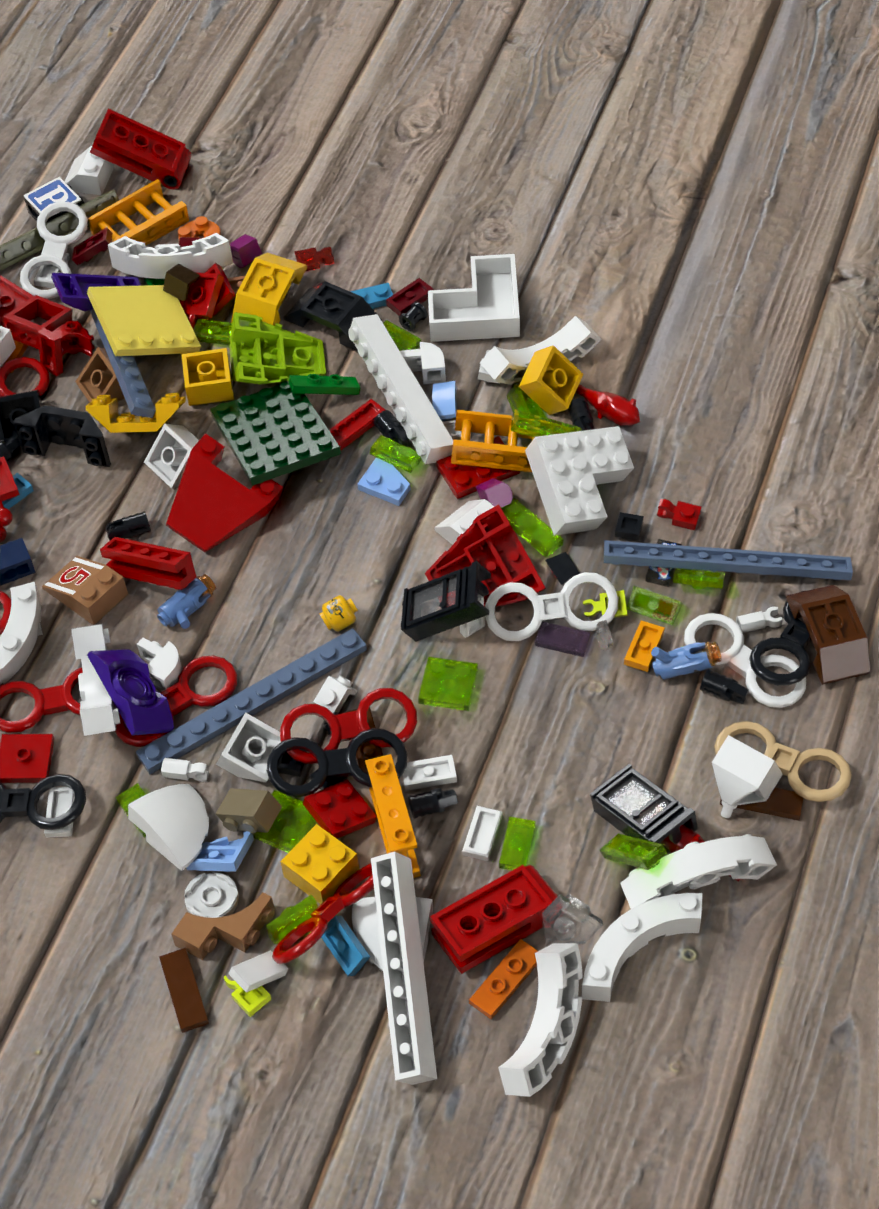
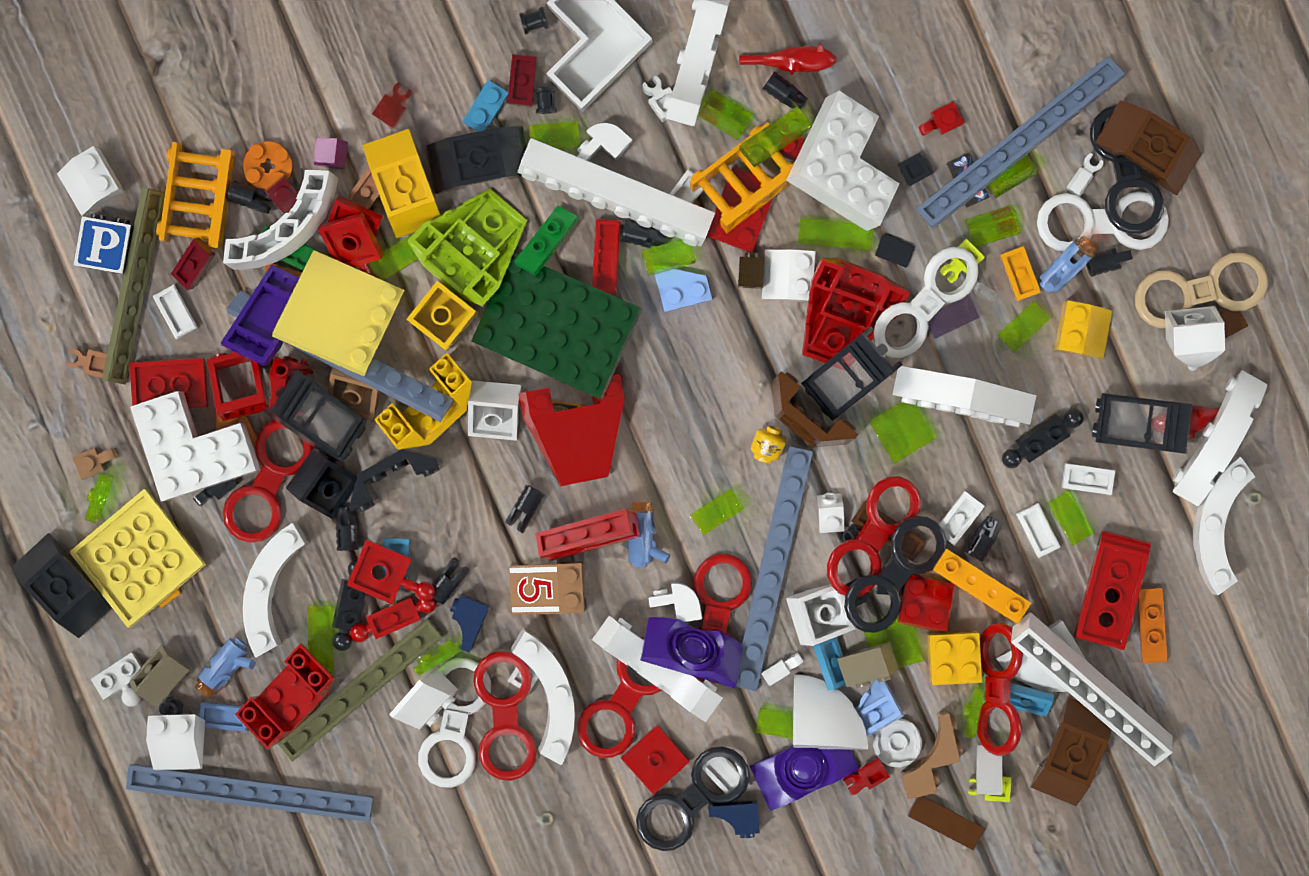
camera: 45 degrees left, 35 degrees up
(26, 529) = (444, 585): none -> black hinge
(37, 846) = (740, 815): none -> dark blue arch
(54, 246) = (165, 298): white bar -> none
(60, 364) = (317, 417): none -> black door
(118, 856) = (800, 771): none -> dark purple slope
(141, 150) = (147, 115): red hinge -> none
(164, 898) = (869, 775): none -> red plate
(165, 234) = (245, 196): none -> black hinge
(179, 280) = (327, 245): dark brown panel -> none
(227, 779) = (827, 656): none -> dark azure plate
(255, 630) = (717, 511): none -> clear neon green plate
(334, 1015) = (1073, 754): none -> reddish brown slope
(385, 631) = (811, 431): none -> reddish brown slope
(443, 501) = (751, 271): none -> dark brown brick
(445, 400) = (656, 168): light blue slope -> none
(454, 272) = (533, 20): none -> black bush
(495, 492) = (787, 232): magenta piece -> none
(513, 659) = (964, 395): none -> white piece
(551, 380) = (735, 82): yellow brick -> none
(551, 768) = (1042, 438): none -> black plate
(553, 1021) = (1219, 639): white brick -> none
(559, 824) = (1088, 479): none -> white plate
(569, 921) = (1166, 549): clear plate -> none
(612, 684) = (1023, 326): none -> clear neon green plate
(633, 851) = (1167, 465): clear neon green plate -> none
(658, 716) = (1083, 329): none -> yellow slope

